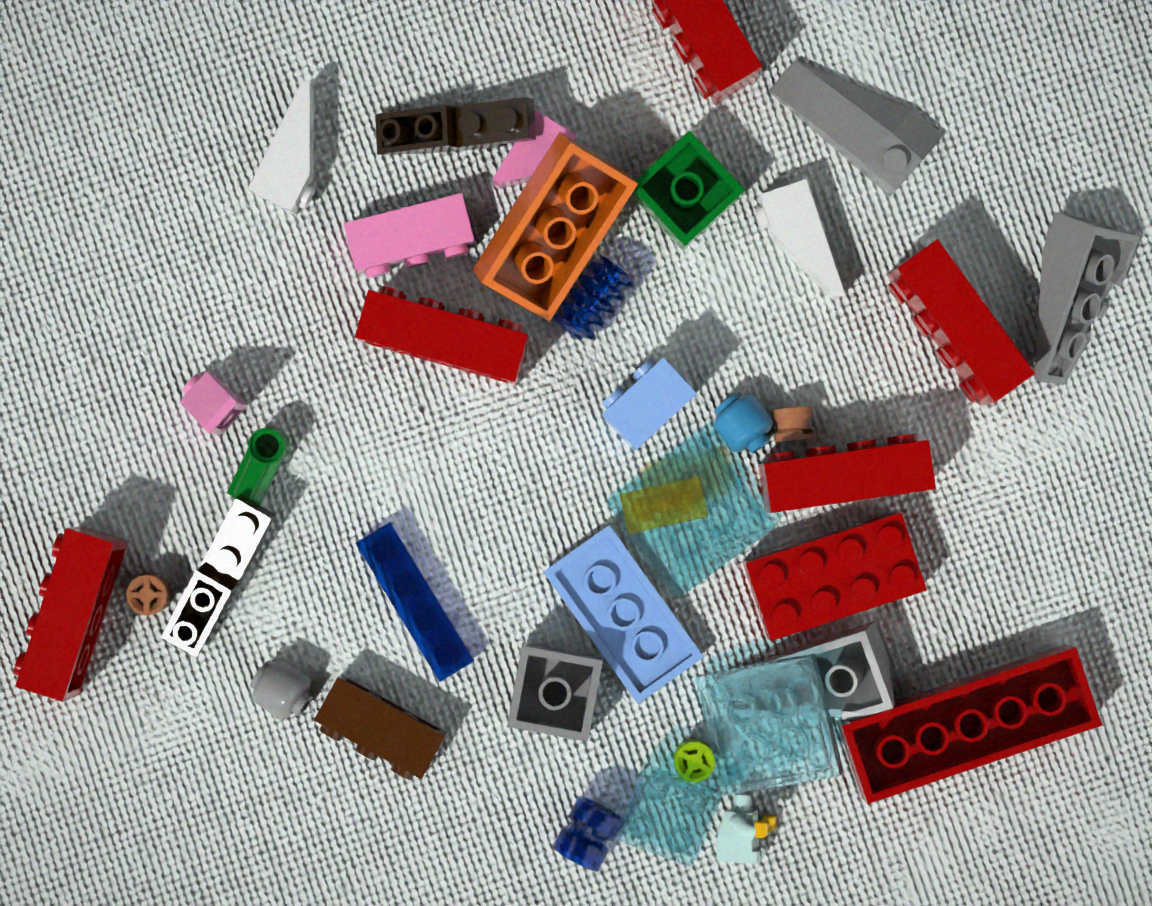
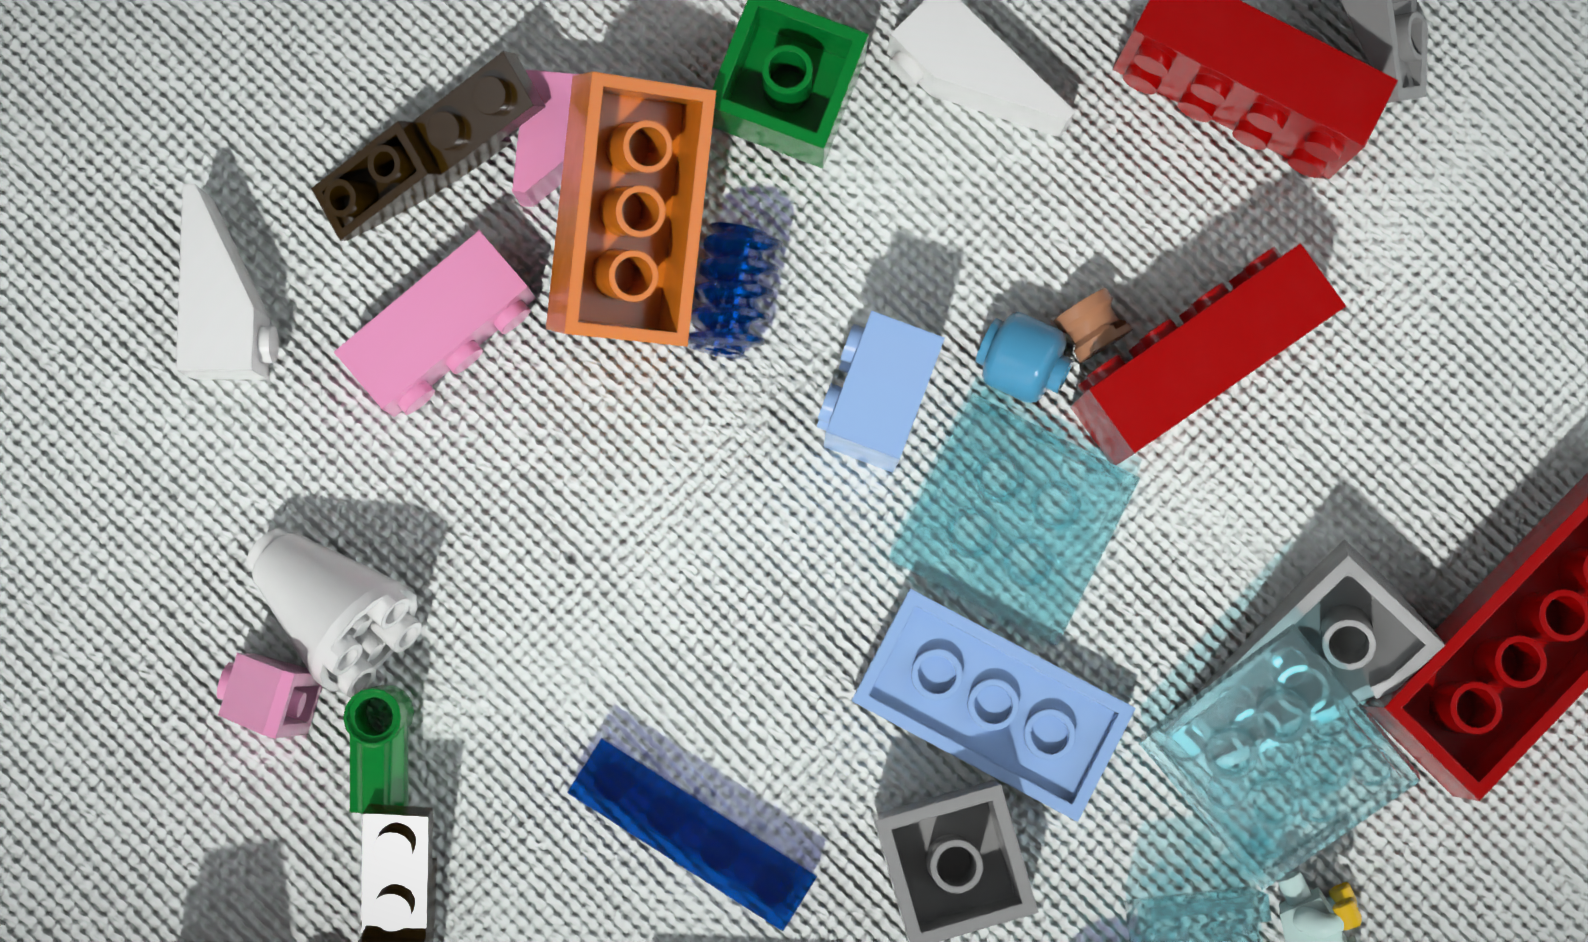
camera: 25 degrees left, 5 degrees down
(272, 371) = (333, 609): none -> white cone
(441, 336) = (546, 439): red brick -> none
(663, 505) = (973, 522): clear yellow plate -> none
(698, 765) = (1209, 863): lime wheel -> none
(834, 576) = (1258, 504): red brick -> none

